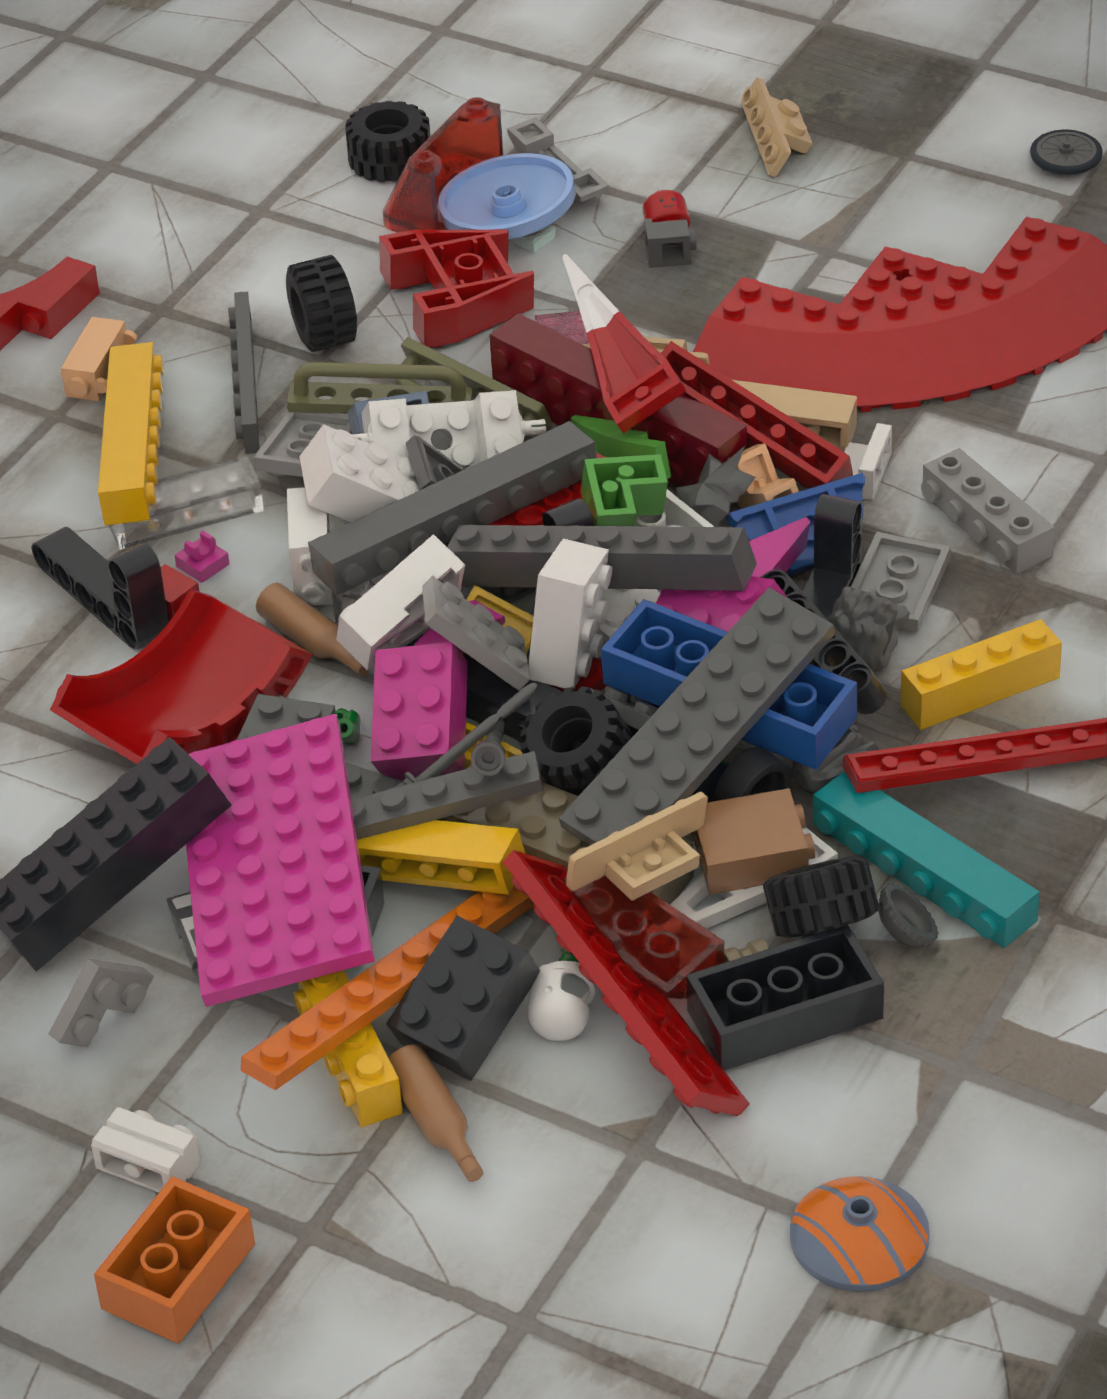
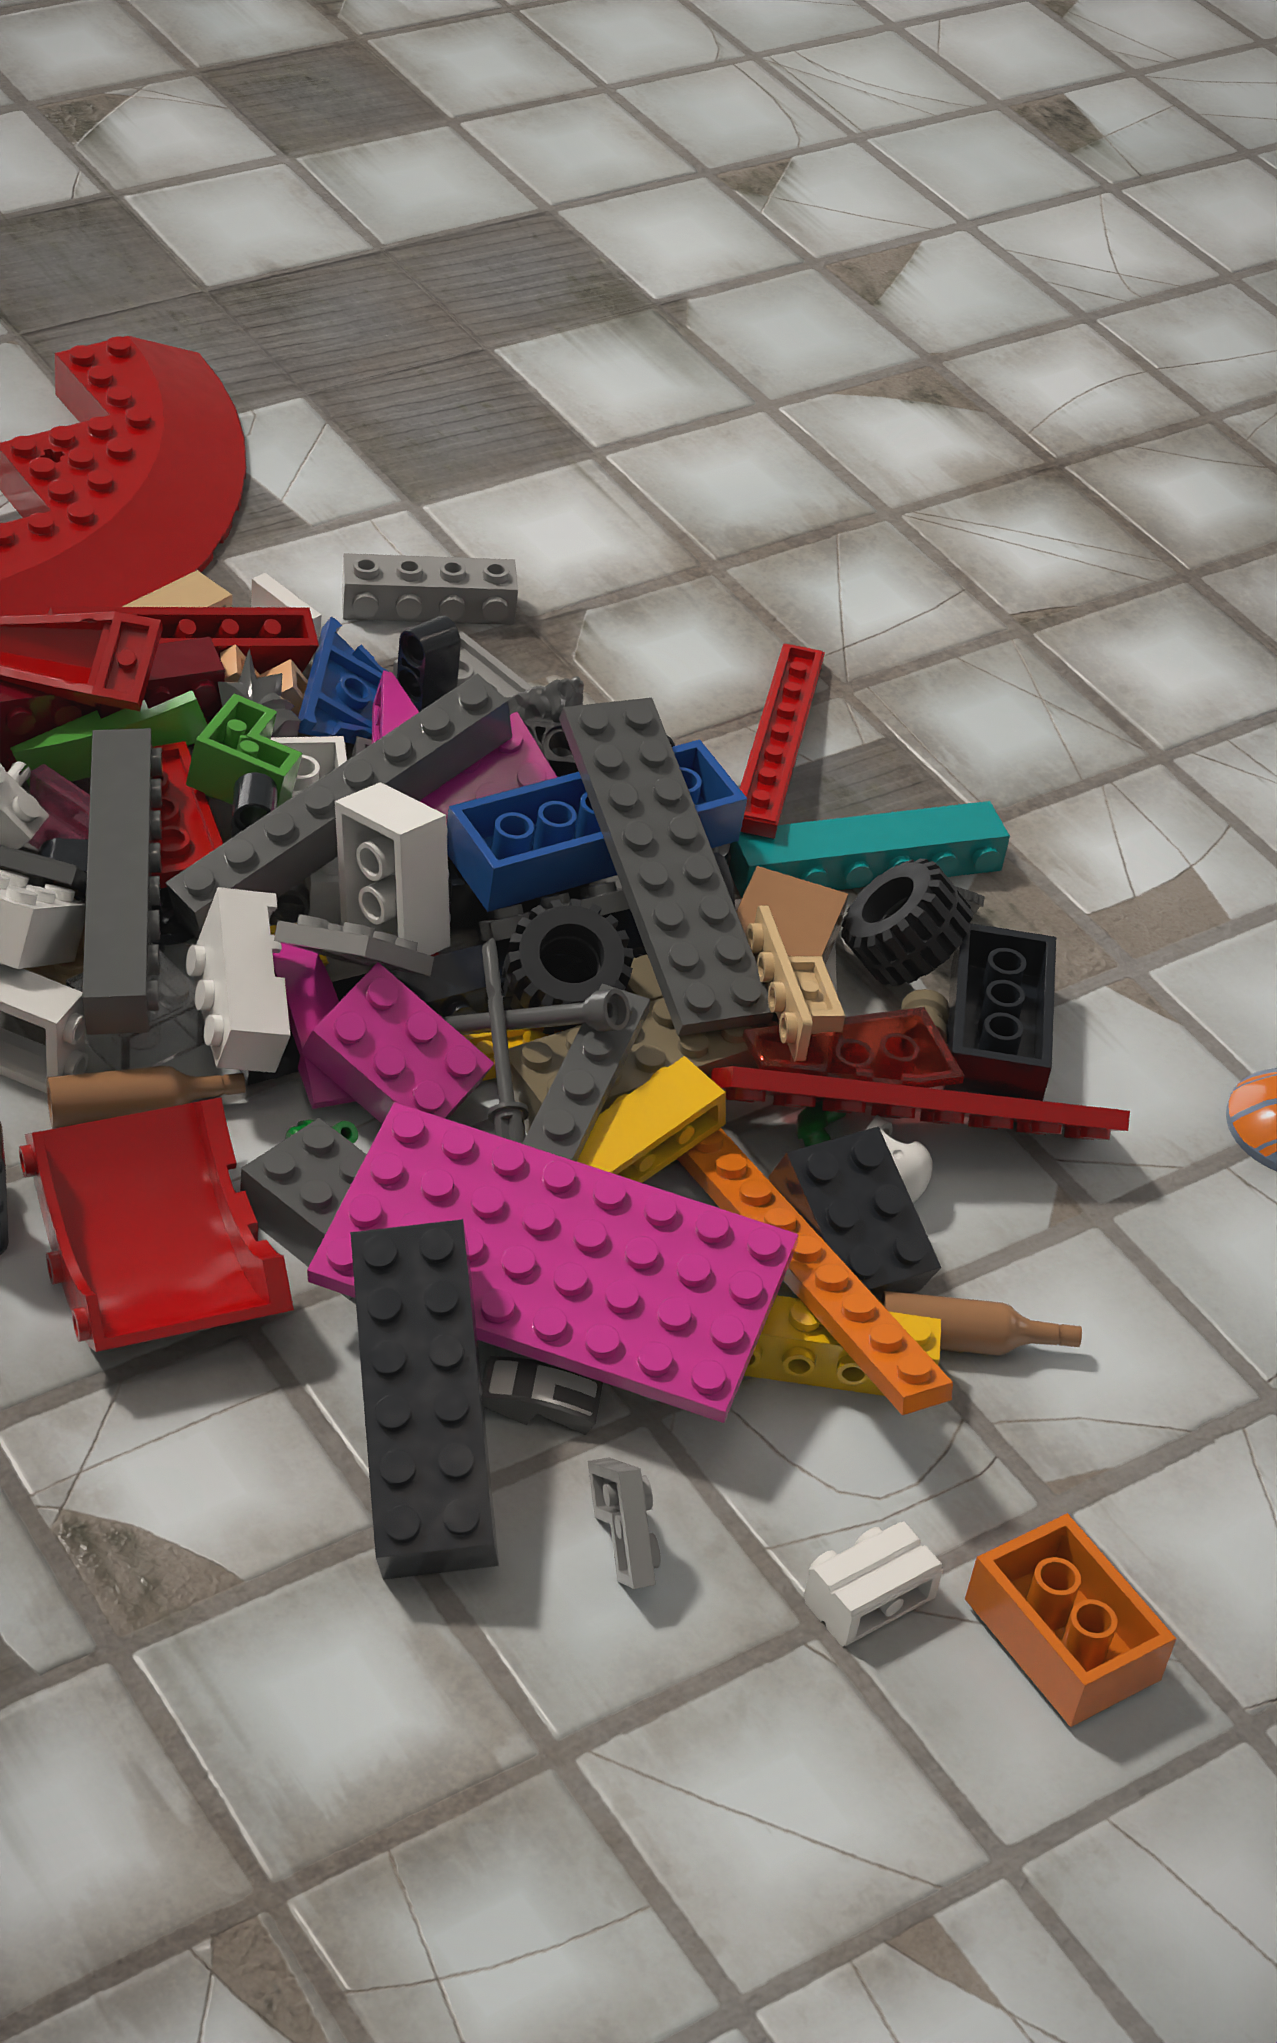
camera: 70 degrees left, 0 degrees up
(980, 674) = (660, 673): yellow brick -> none

